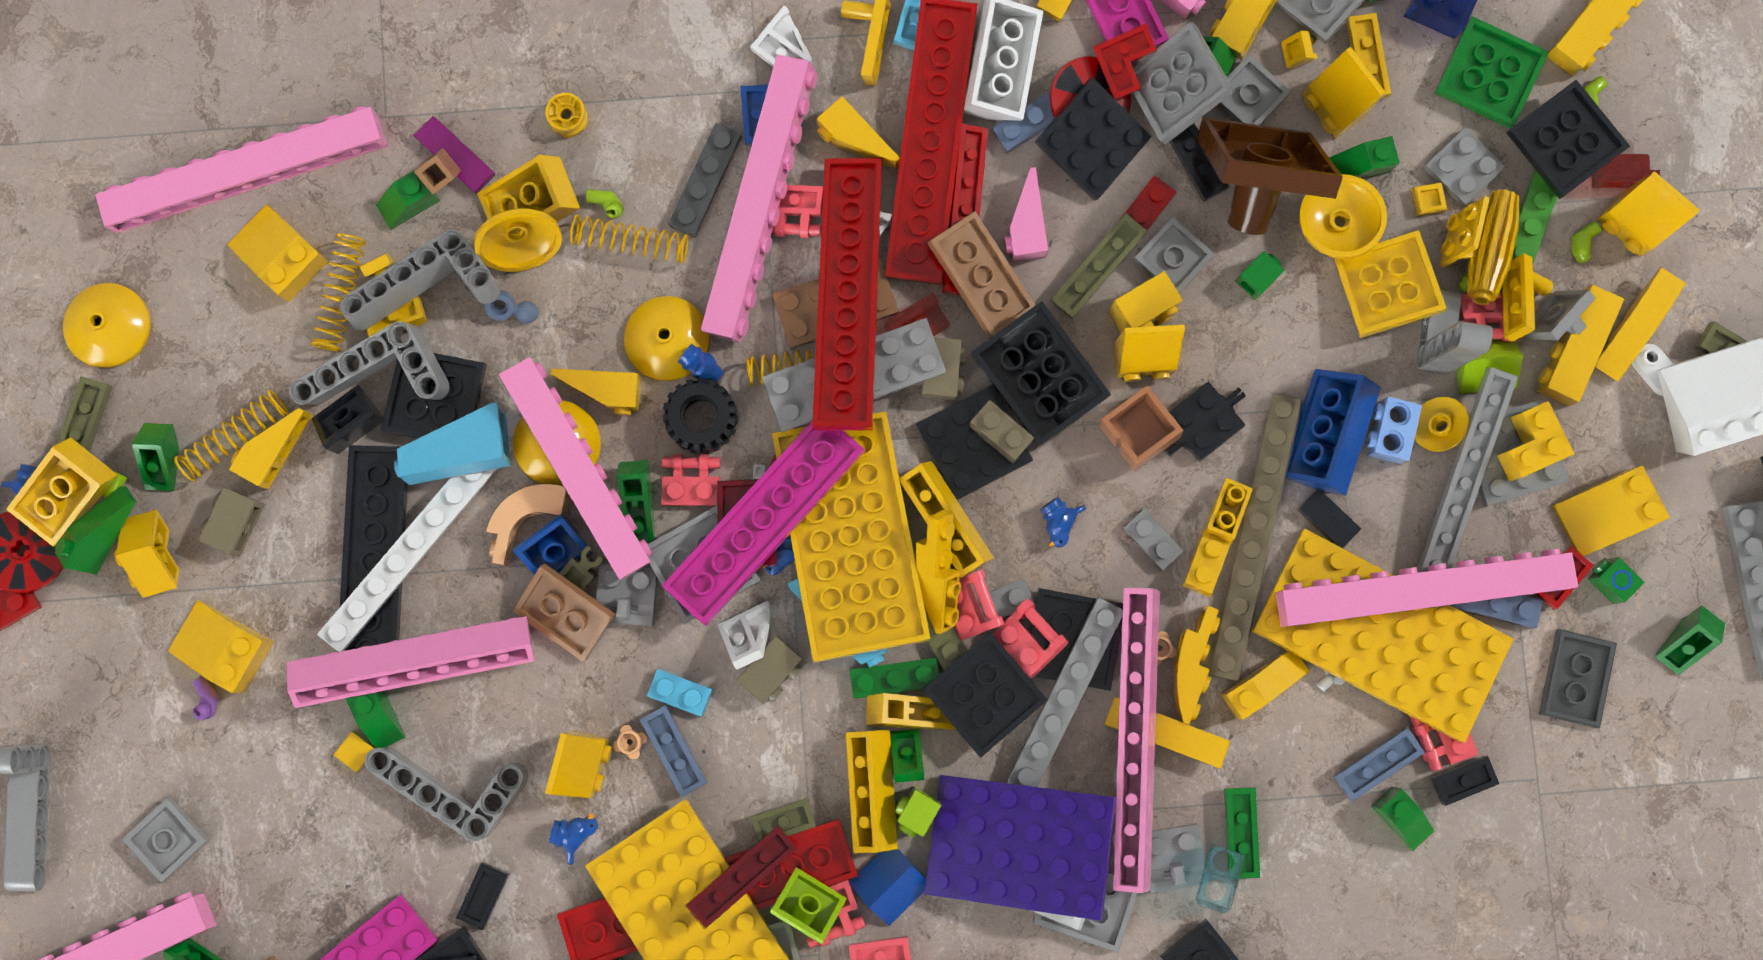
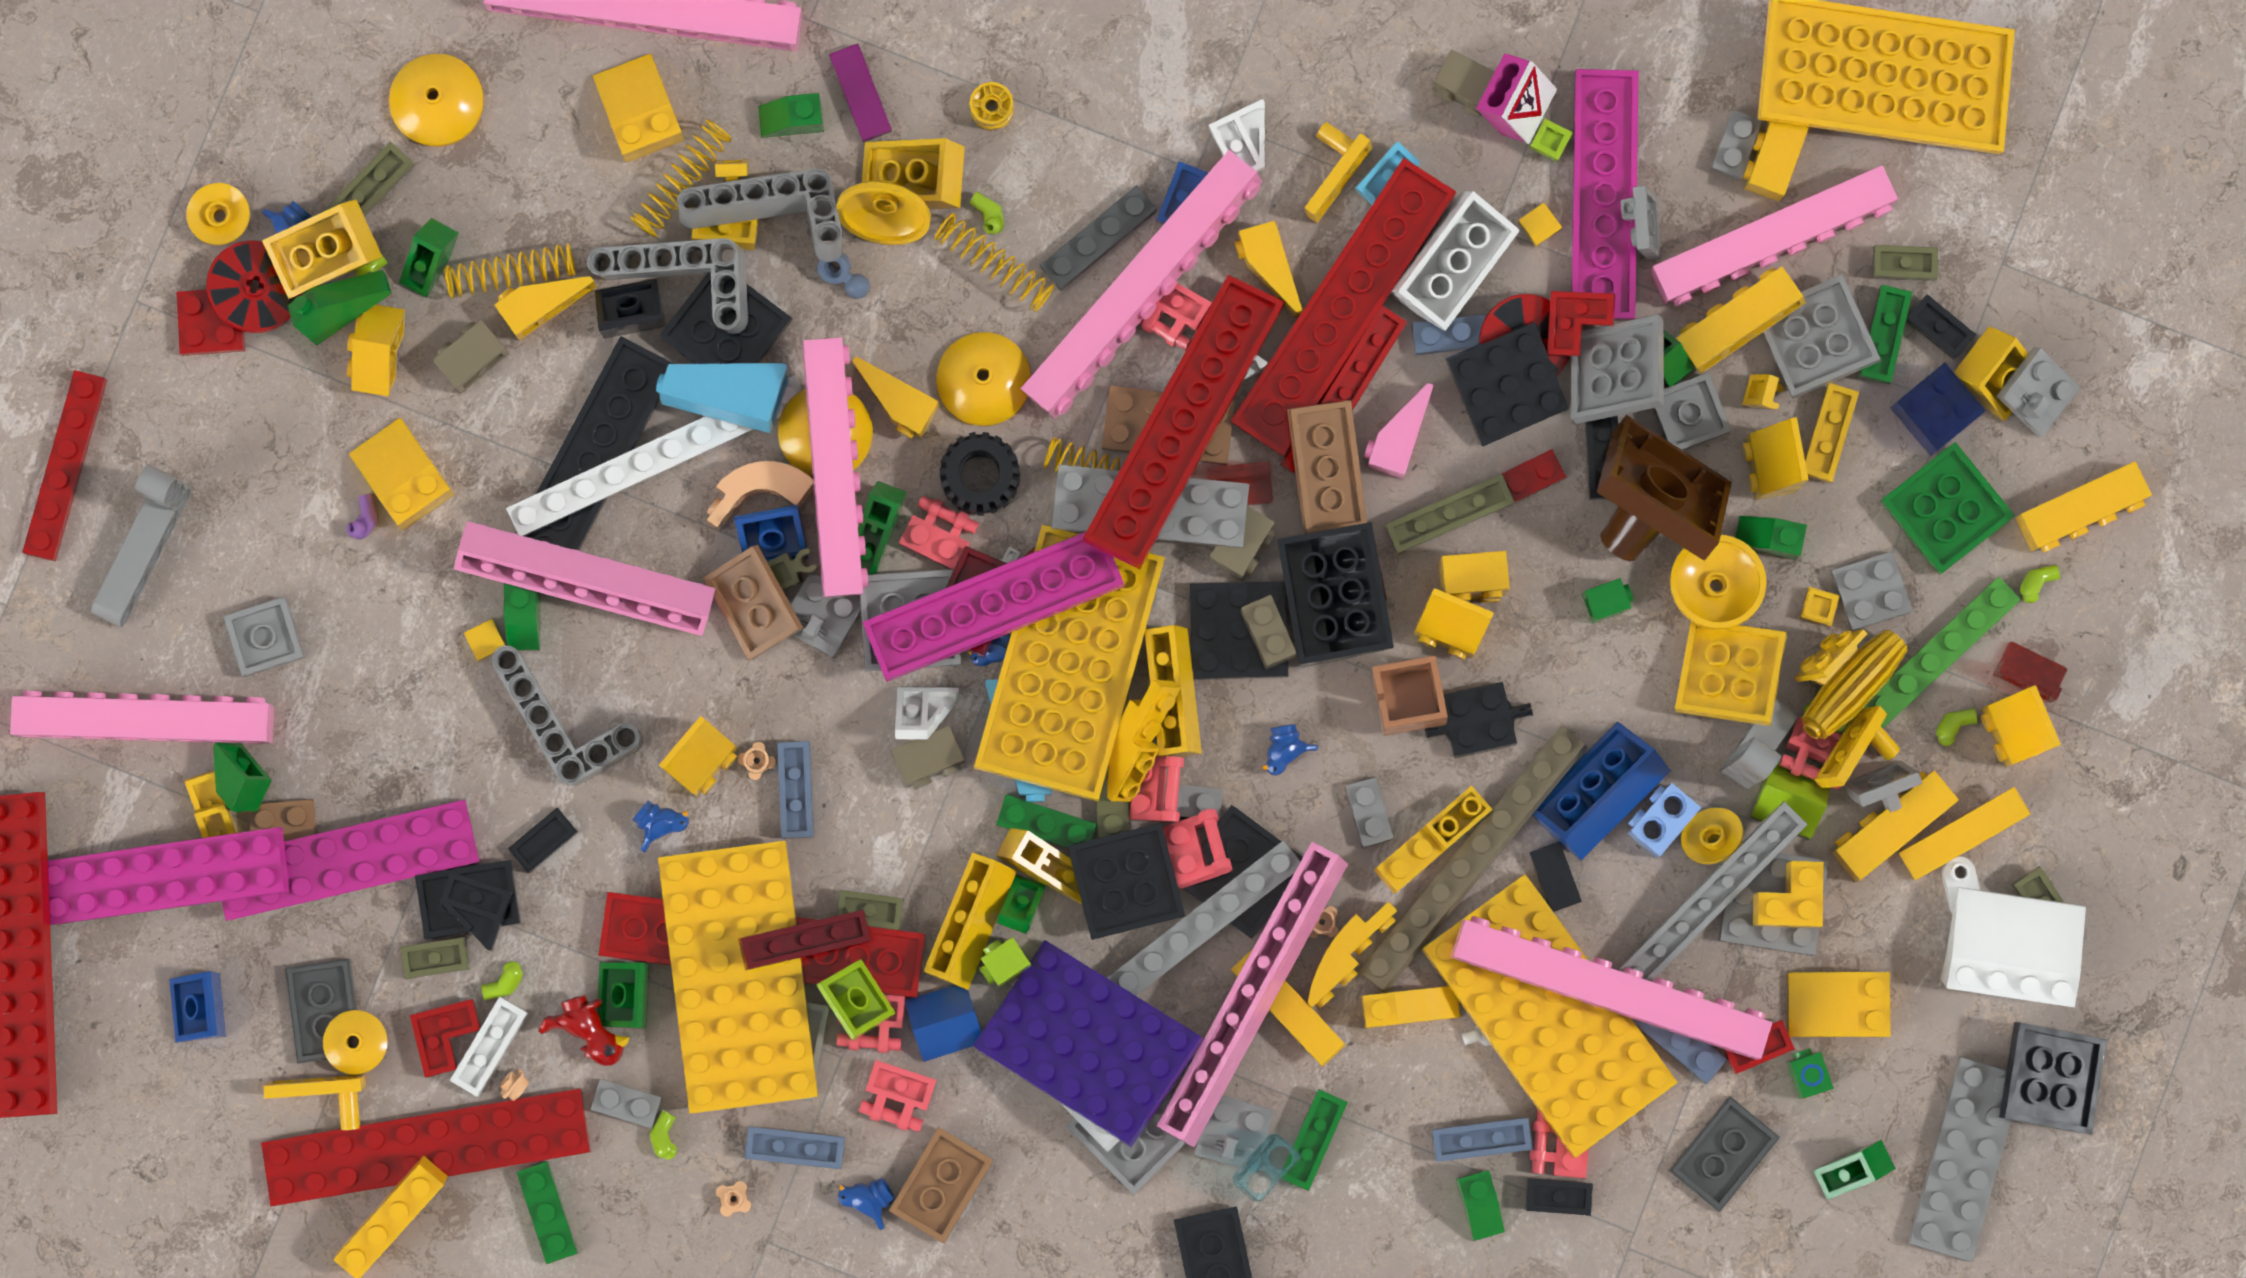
camera: 25 degrees right, 0 degrees up
(437, 171) = (837, 105): medium nougat brick -> none
(679, 692) = (828, 736): medium azure plate -> none
(700, 364) = (1004, 422): blue animal -> none
(1176, 253) = (1531, 540): light grey plate -> none
(1567, 139) = (1984, 613): black plate -> none

